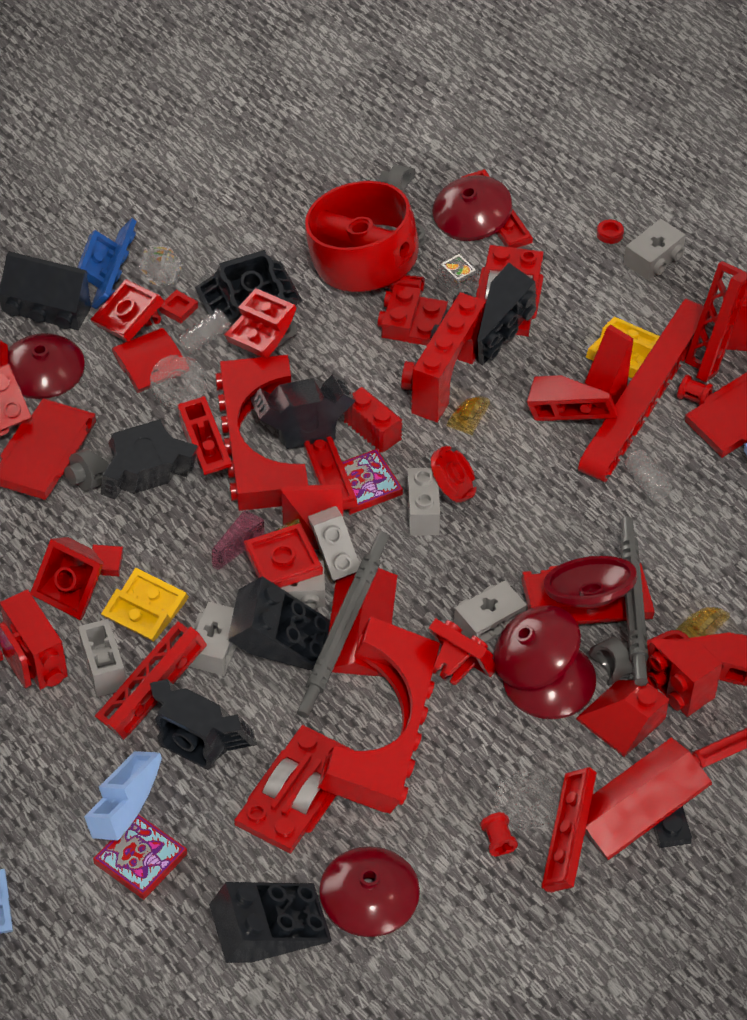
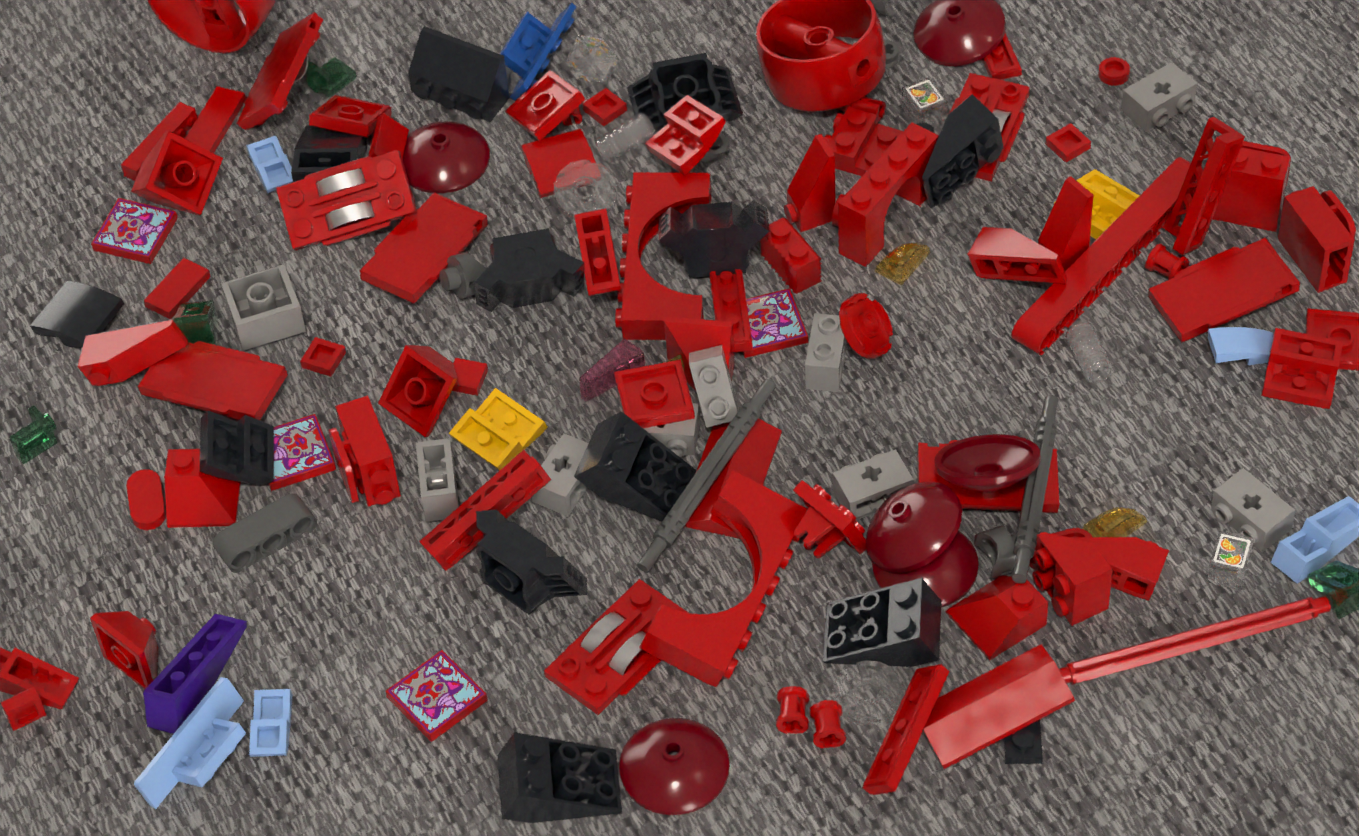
camera: 15 degrees right, 0 degrees up
(123, 796) = (430, 629): light blue slope -> none
(382, 360) = (812, 188): none -> red slope
(465, 825) = (792, 710): none -> red bush
(528, 738) = (885, 625): none -> black slope
(586, 296) = (1068, 142): none -> red tile

